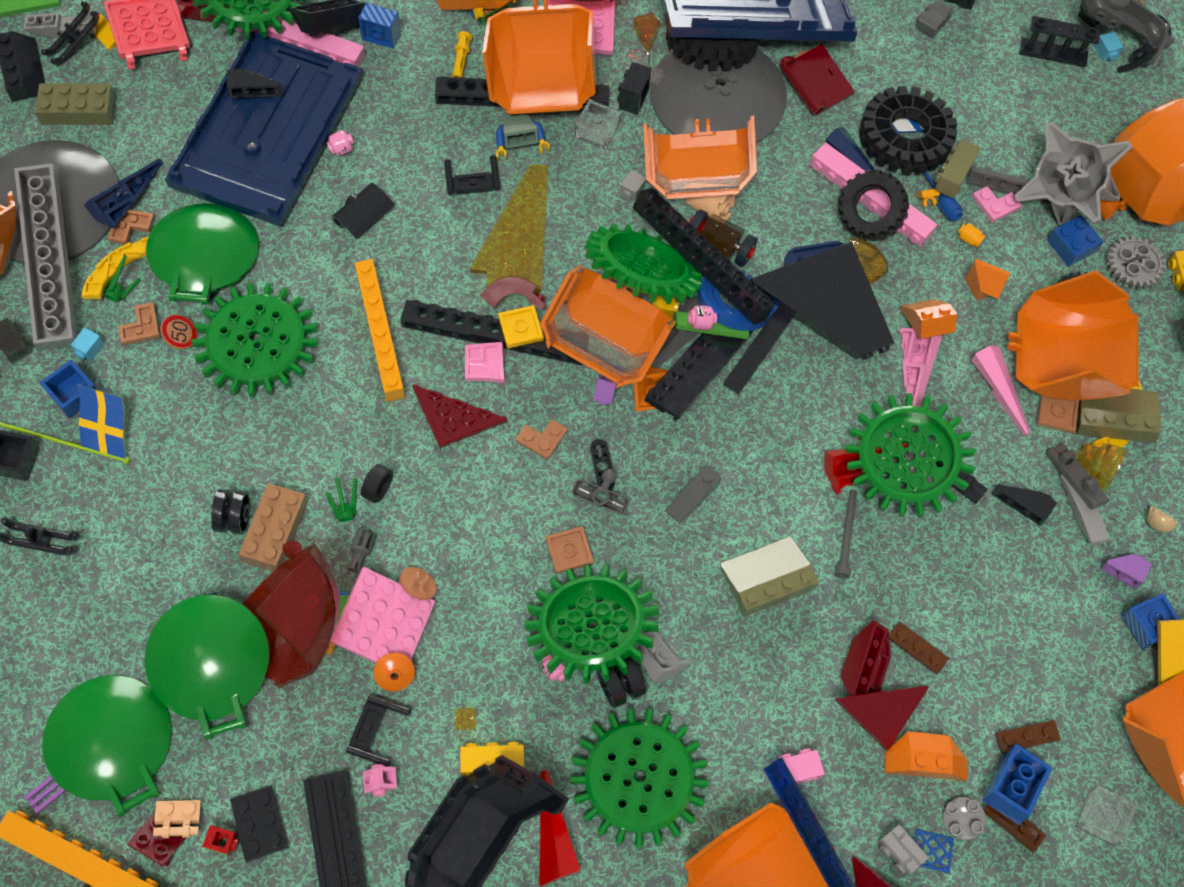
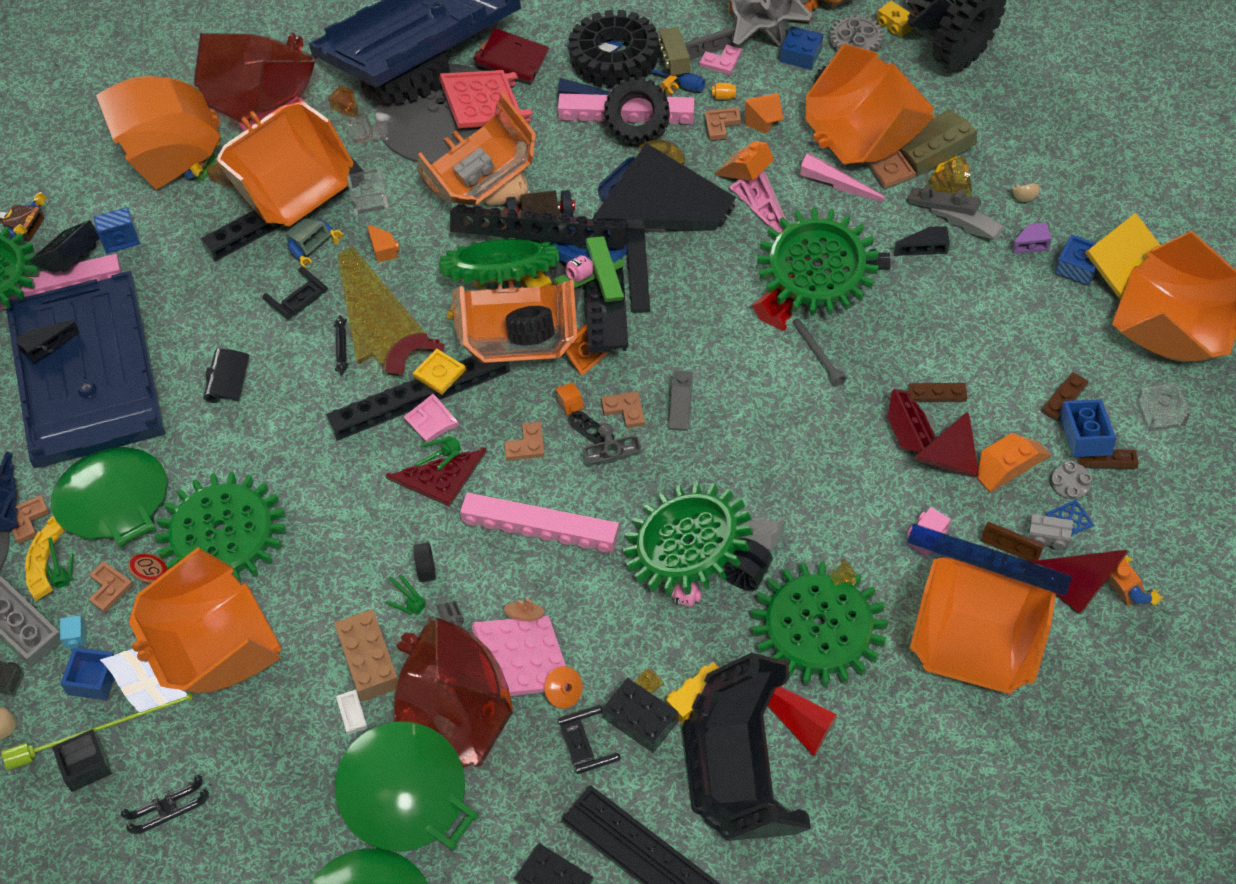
camera: 30 degrees left, 10 degrees down
(168, 416) = (201, 627): none -> orange windscreen
(227, 566) = (351, 712): none -> white tile
(230, 511) = (323, 664): black wheel -> none
(340, 143) = (161, 338): bright pink head -> none
(379, 330) = (322, 452): light orange brick -> none
(379, 780) = (623, 771): bright pink brick -> none
(432, 743) = (640, 715): none -> black brick
(462, 50) = (203, 208): yellow pin -> none
(469, 247) = (341, 356): none -> black wheel
(478, 397) = (450, 447): none -> green plant
(494, 517) = (540, 522): none -> bright pink brick
(569, 549) = (620, 505): nougat plate -> none
(572, 180) = (383, 244): none -> orange slope
(605, 390) = (545, 372): medium lavender slope -> none
(605, 425) = (569, 398): none -> orange brick
(620, 339) = (530, 325): none -> black tyre
(632, 185) = (435, 218): light grey brick -> none
(634, 88) = (374, 146): black piece -> none
(649, 464) = (625, 403): none -> nougat plate
(691, 753) = (844, 573): none -> clear yellow brick
(698, 162) = (473, 167): none -> light grey brick
(721, 333) = (604, 269): none -> bright green tile
(759, 95) = (475, 95): none -> coral plate
(769, 576) = (788, 418): slope -> none
(861, 834) = (1012, 542): none -> reddish brown plate
(942, 258) = (718, 119): none -> nougat plate

